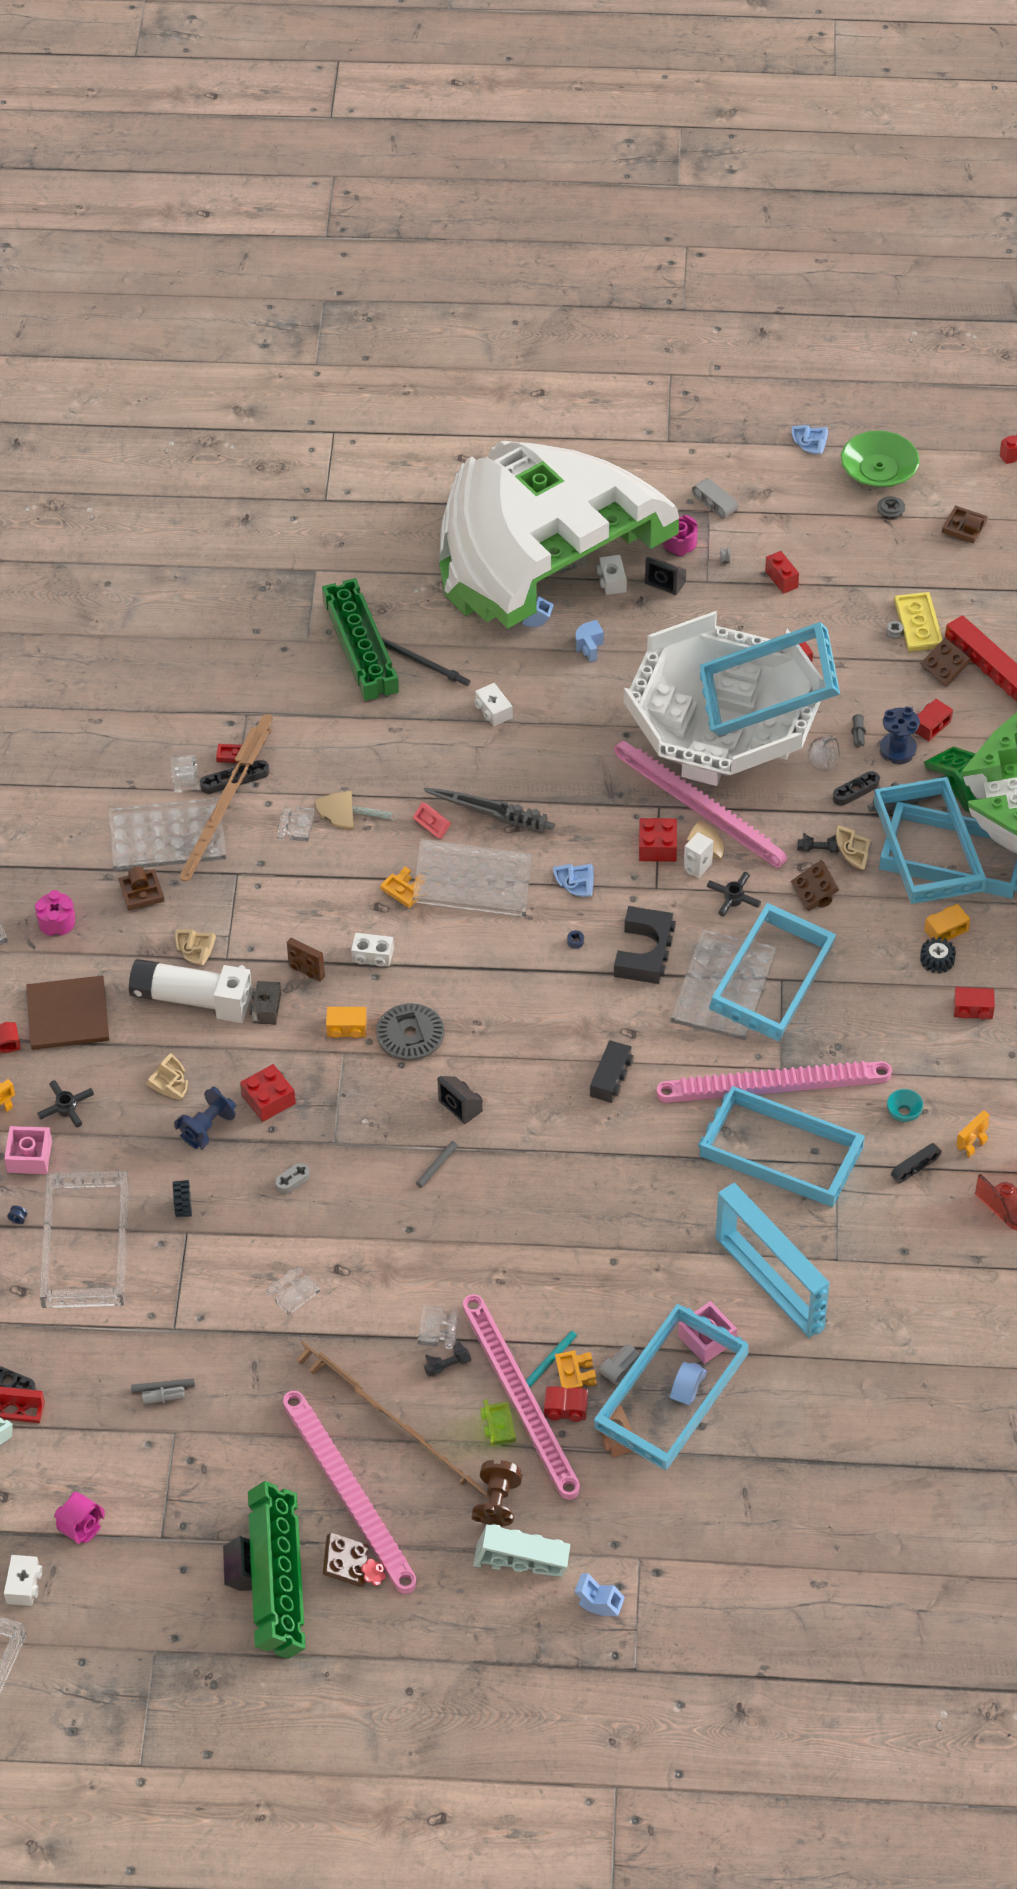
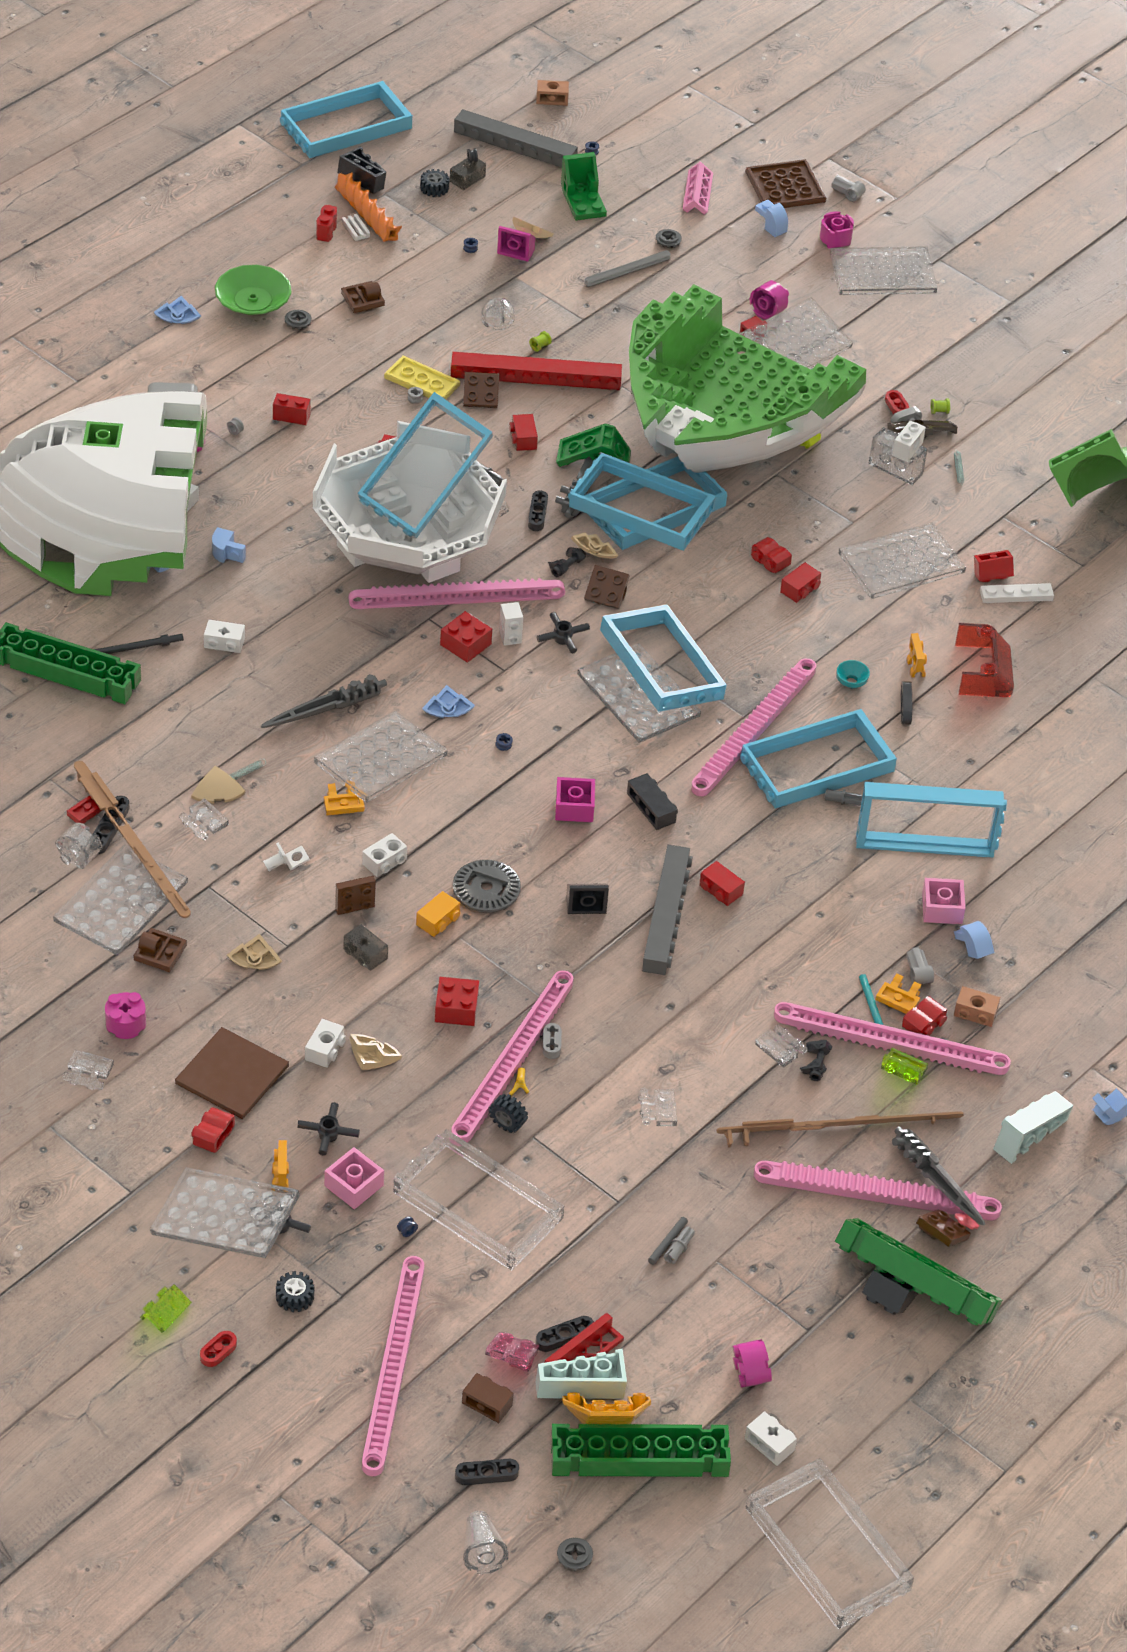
camera: 55 degrees left, 5 degrees down
(146, 1044) = (324, 1043): none -> white brick
(195, 1128) = (448, 1063): dark blue piece -> none
(225, 992) = (335, 961): white piece -> none
(230, 1187) = (520, 1082): none -> yellow bar
(251, 1164) = (513, 1055): none -> bright pink gear
(306, 895) = (282, 858): none -> white bracket
(407, 1497) = (929, 1163): none -> dark grey piece
(431, 820) = (296, 742): coral plate -> none
(436, 1164) = (628, 951): dark grey bar -> none
(499, 1480) = (961, 1093): reddish brown piece -> none
(503, 1157) = (666, 910): none -> dark grey brick
(554, 1022) = (575, 799): none -> dark pink brick
(570, 1174) = (721, 883): none -> red brick
(635, 1443) = (997, 998): medium azure door -> none
(646, 966) = (549, 690): black arch -> none
(664, 575) = (216, 467): black slope -> none
(708, 831) = (486, 612): tan brick -> none
(757, 1190) = (843, 797): none -> dark grey axle
(898, 744) = (526, 462): dark blue piece -> none
(931, 958) = (737, 571): black wheel -> none
(947, 923) = (716, 548): light orange brick -> none
(983, 963) = (771, 555): none -> red brick

